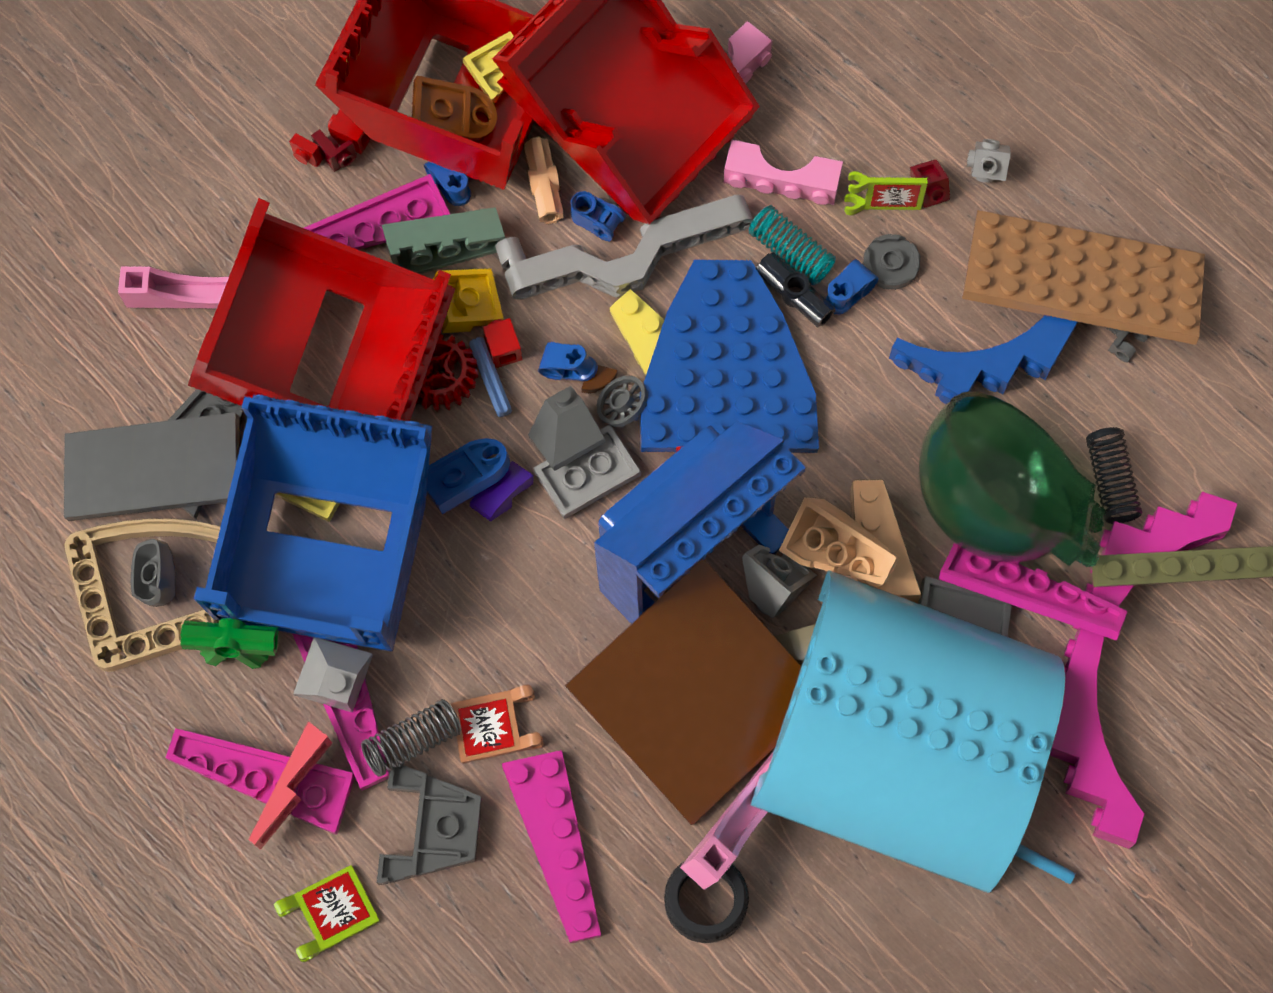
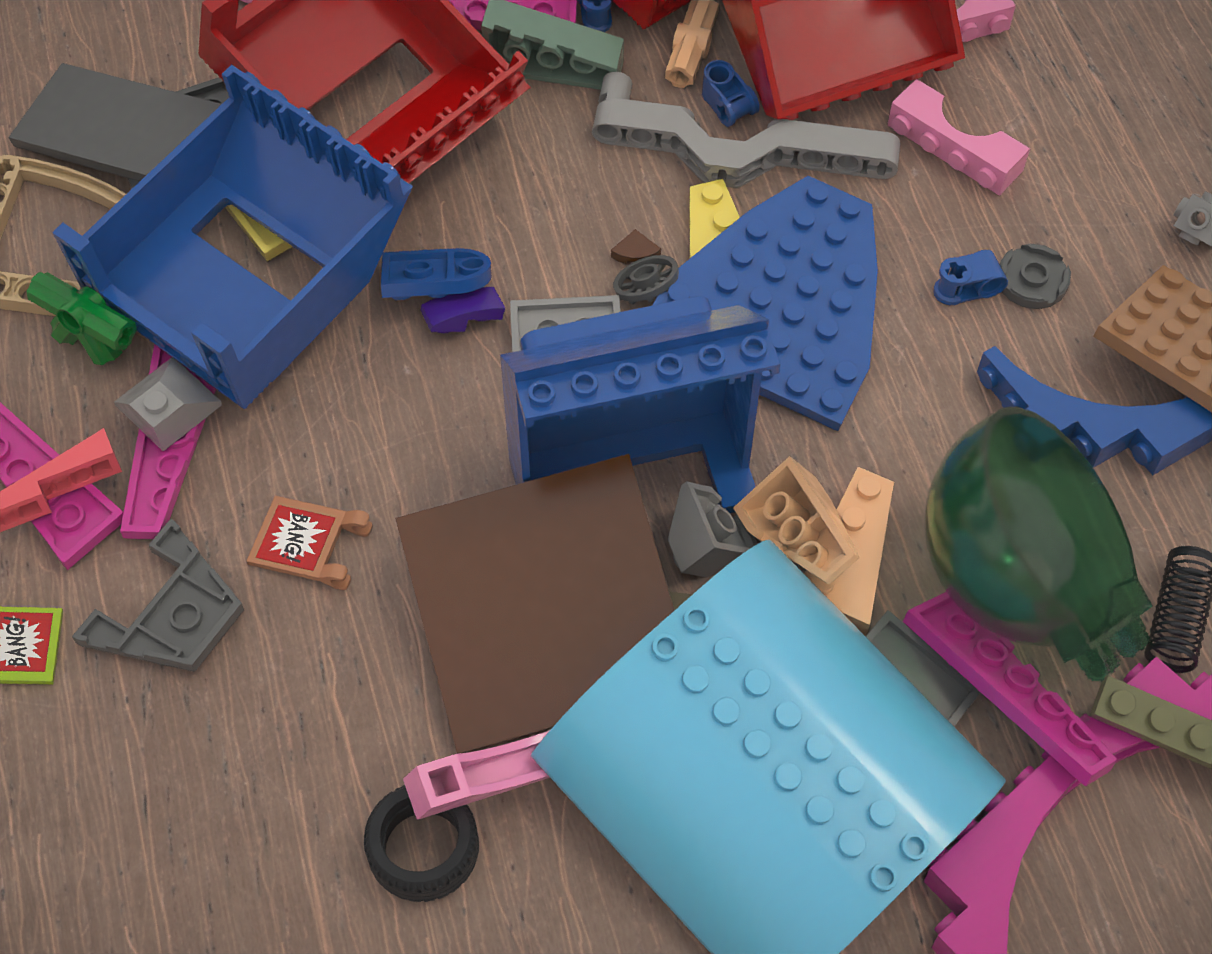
camera: 25 degrees right, 10 degrees down
(153, 573) = (63, 206): dark grey piece -> none
(376, 761) = (149, 497): dark grey piece -> none
(449, 354) = (473, 172): red gear -> none
(473, 301) = (542, 115): yellow plate -> none
(490, 377) = (521, 198): medium blue axle -> none
(502, 342) = (553, 170): red brick -> none
(550, 819) = (301, 675): dark pink wing -> none
(565, 429) = (567, 275): dark grey slope -> none
(567, 362) = (609, 216): blue piece -> none
(807, 301) = (906, 254): black piece -> none
(826, 259) = (911, 184): teal piece -> none
(885, 193) = (1062, 198): lime flag -> none
(937, 182) = (1122, 217): dark red bracket -> none

